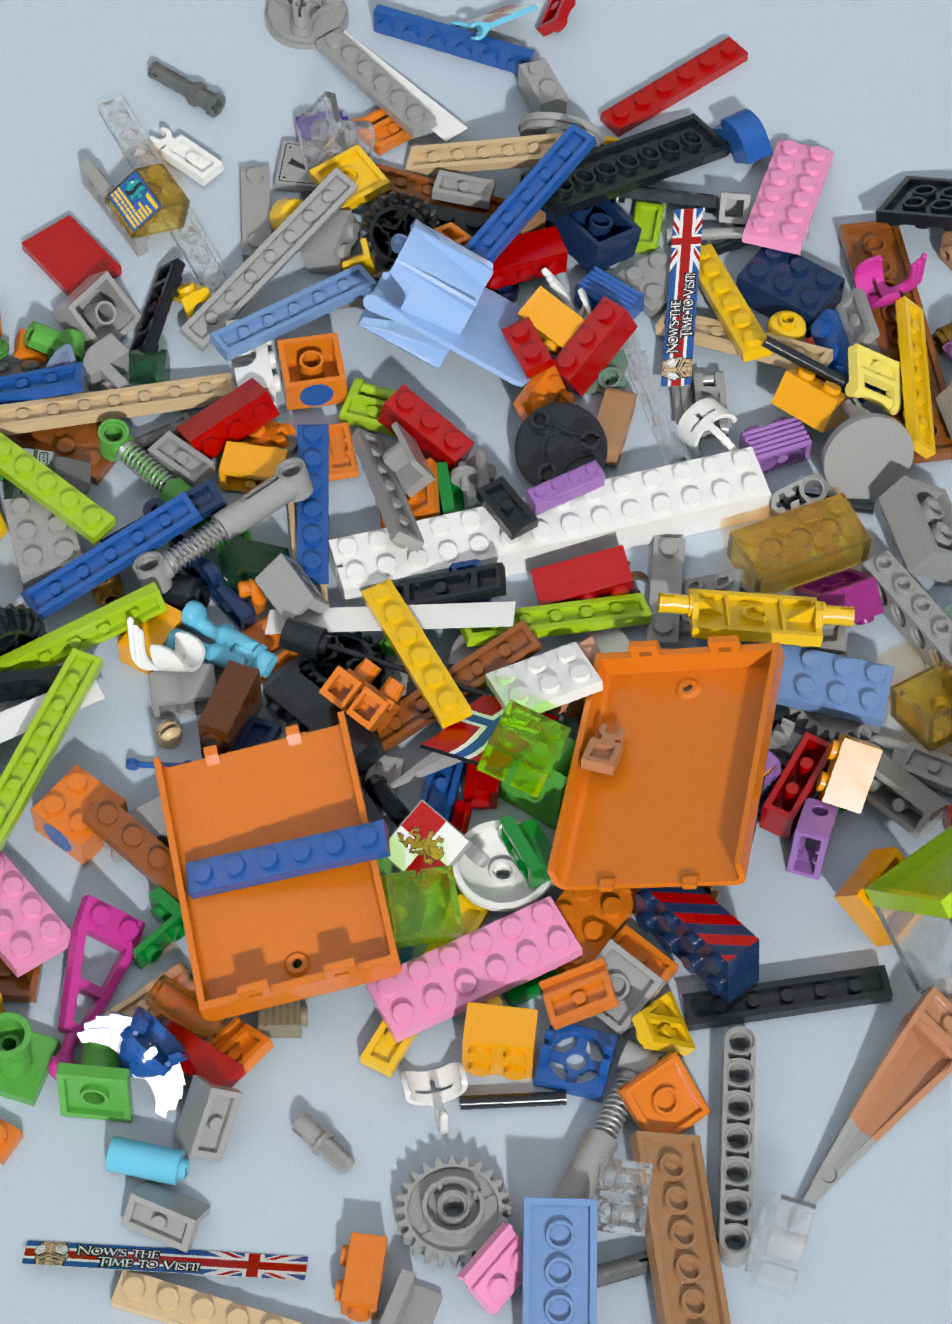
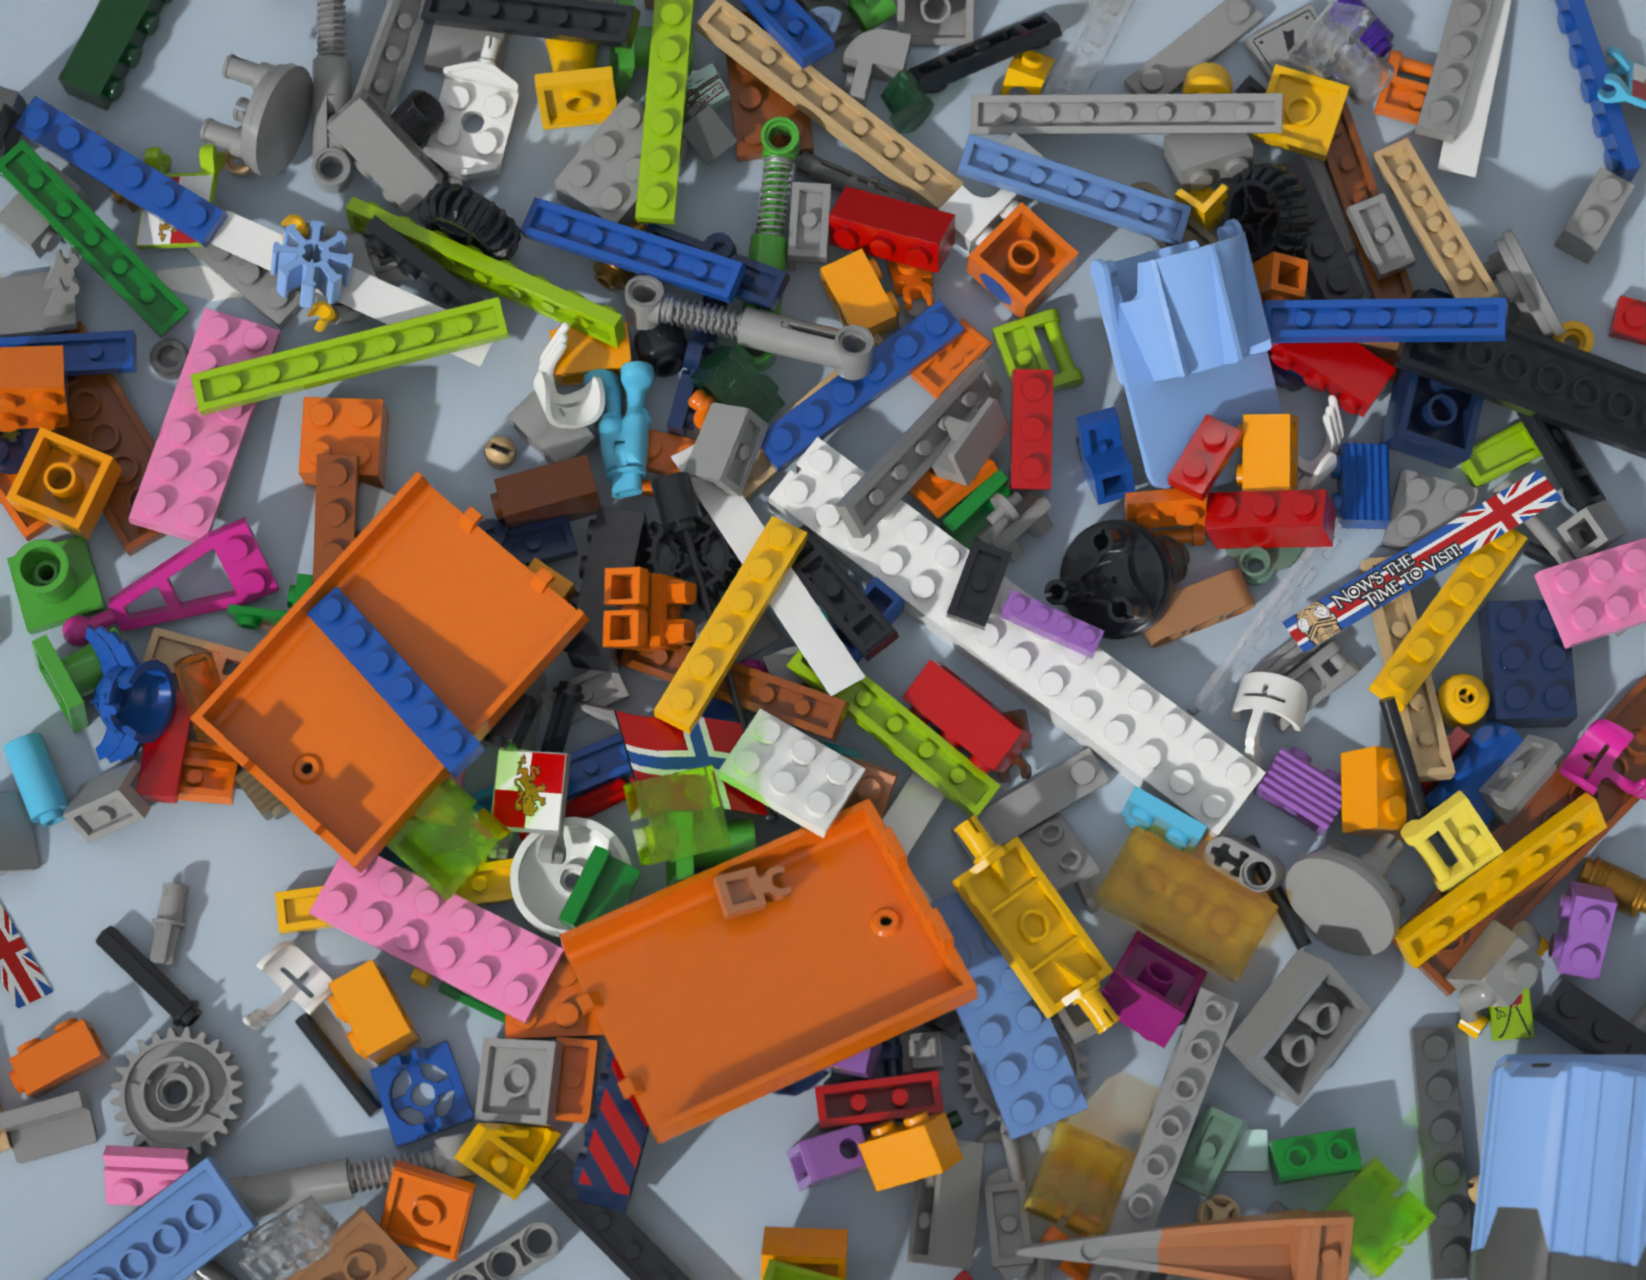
camera: 55 degrees right, 20 degrees up
(134, 764) = (478, 496): blue hinge -> none
(351, 1181) = (149, 977): none -> black axle
(473, 412) = (1103, 456): none -> blue brick
(579, 993) = (480, 1051): orange plate -> none
(735, 514) = (1163, 820): none -> medium azure plate

